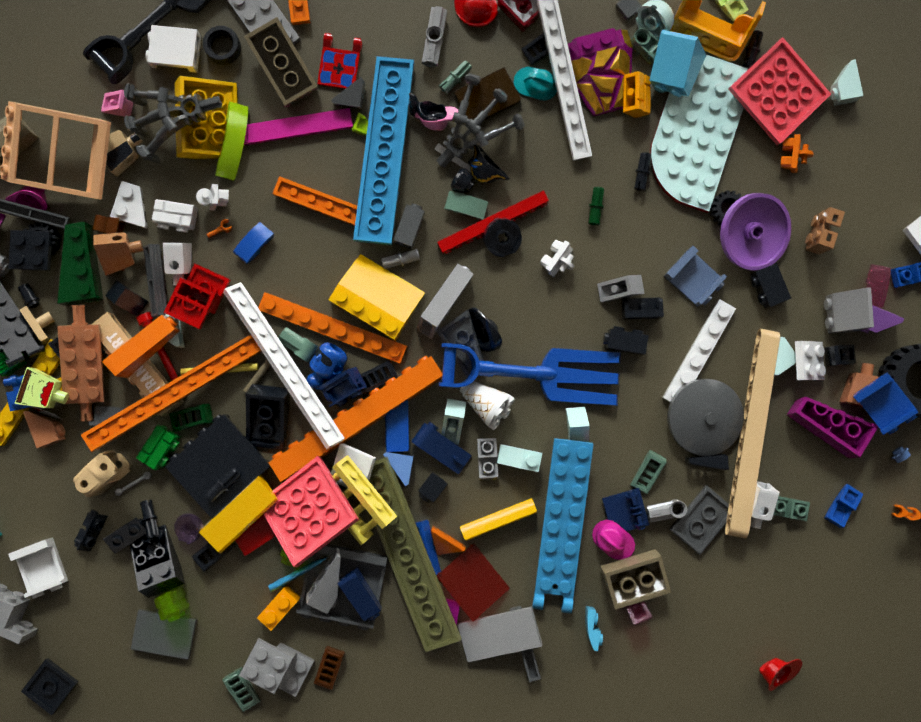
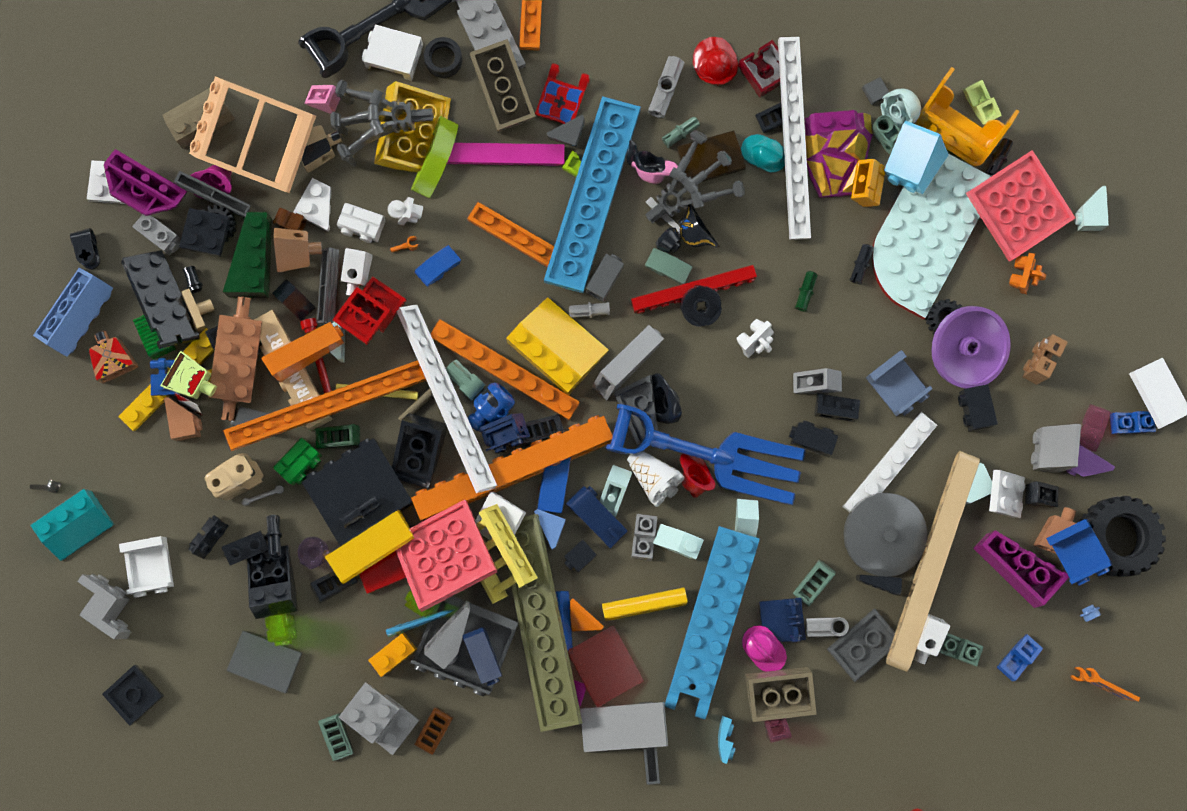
camera: 15 degrees right, 5 degrees down
(525, 394) = (696, 475): none -> red piece

